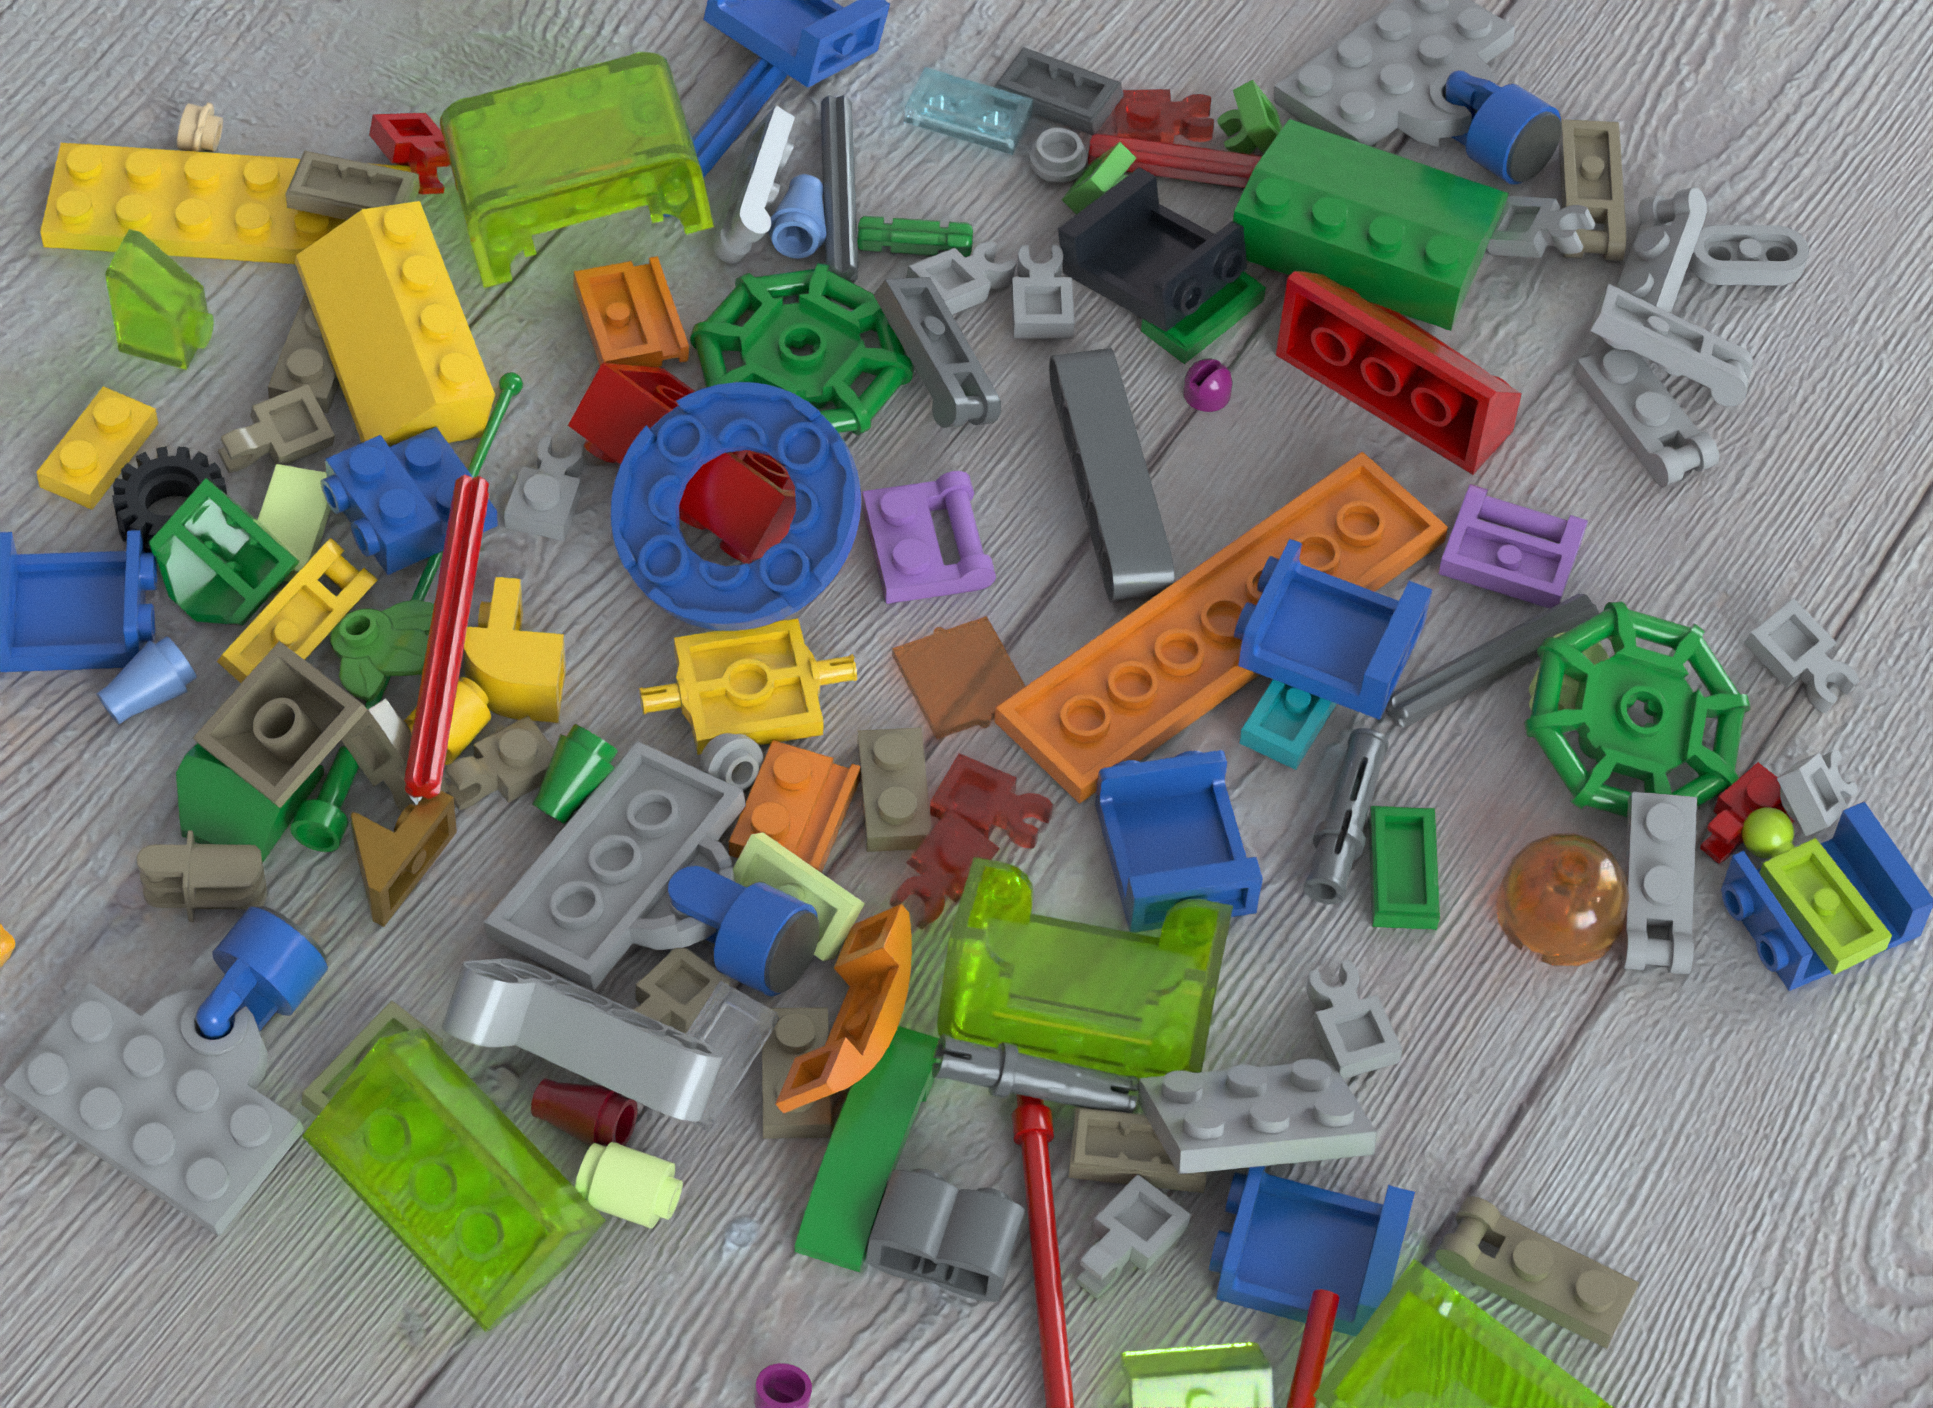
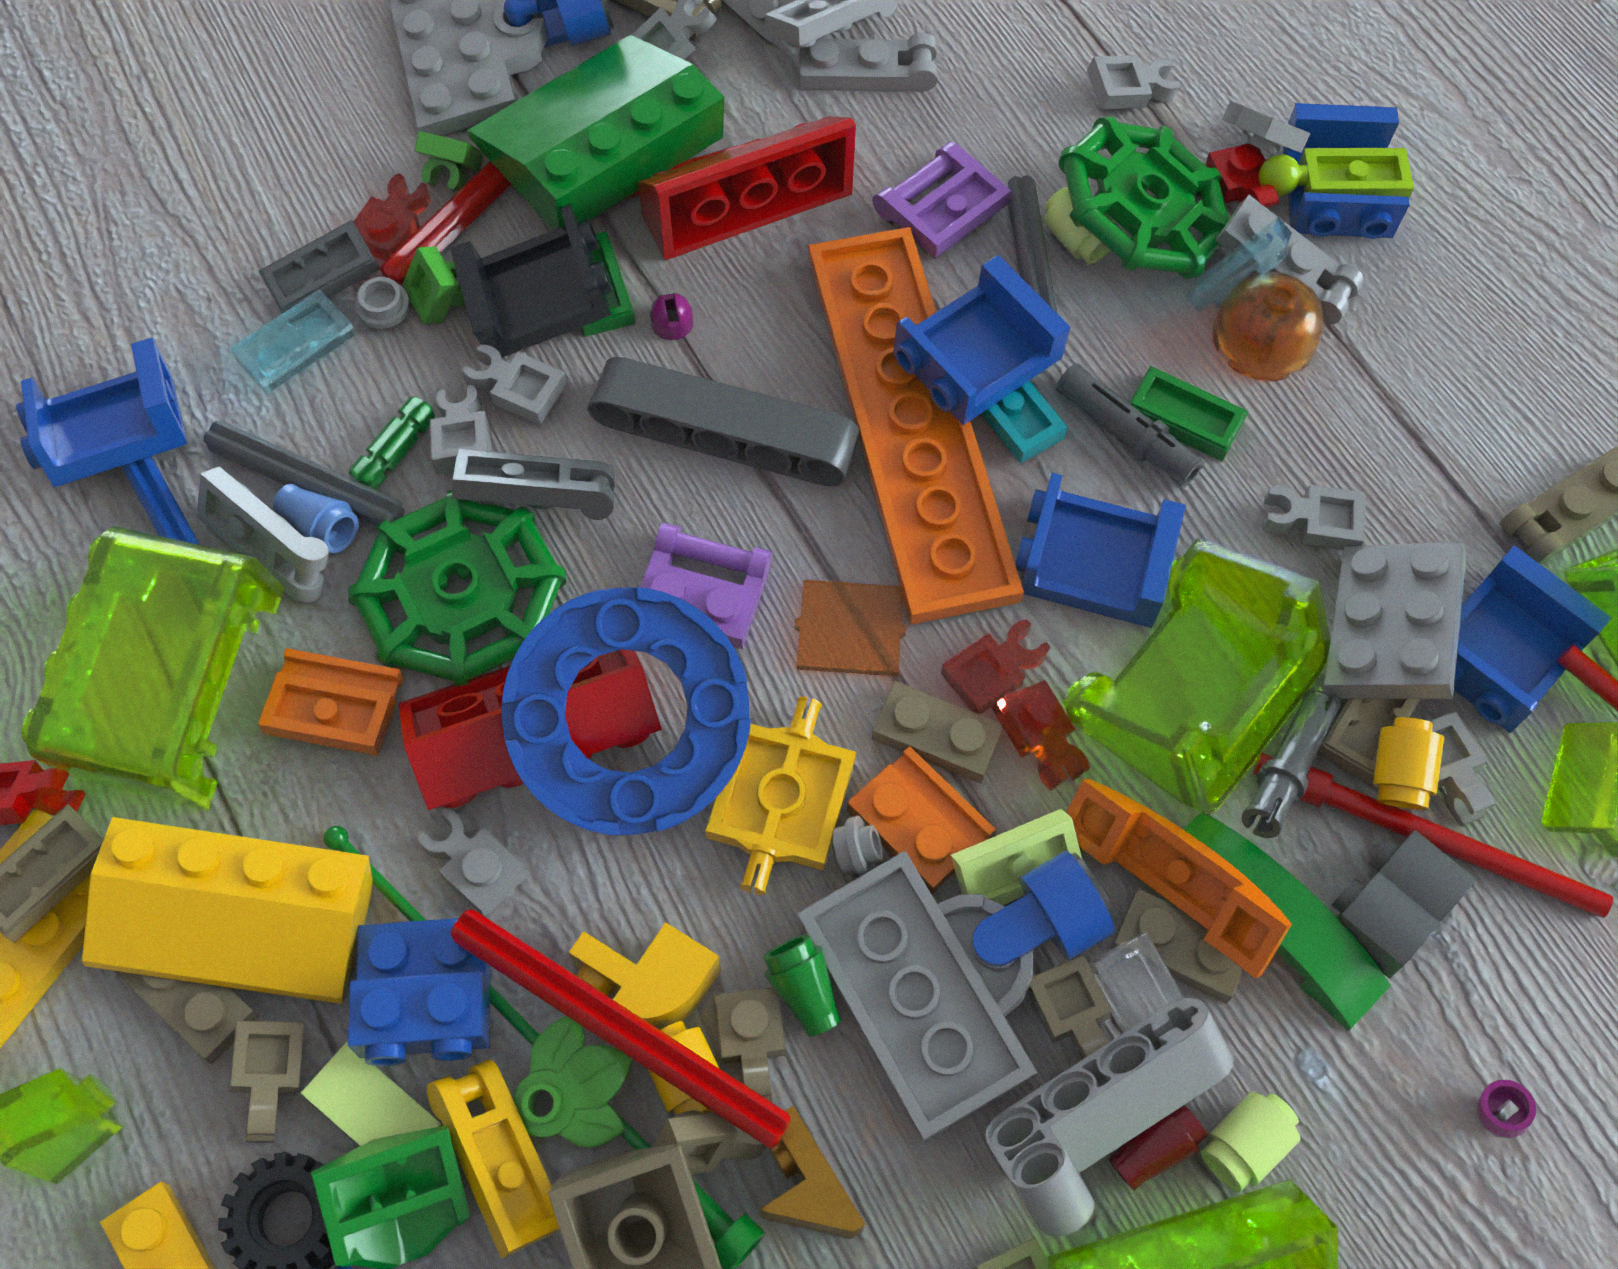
camera: 60 degrees left, 10 degrees up
(1090, 1173) = (1408, 763): none -> yellow brick
(1606, 821) = (1258, 253): none -> clear light blue plate

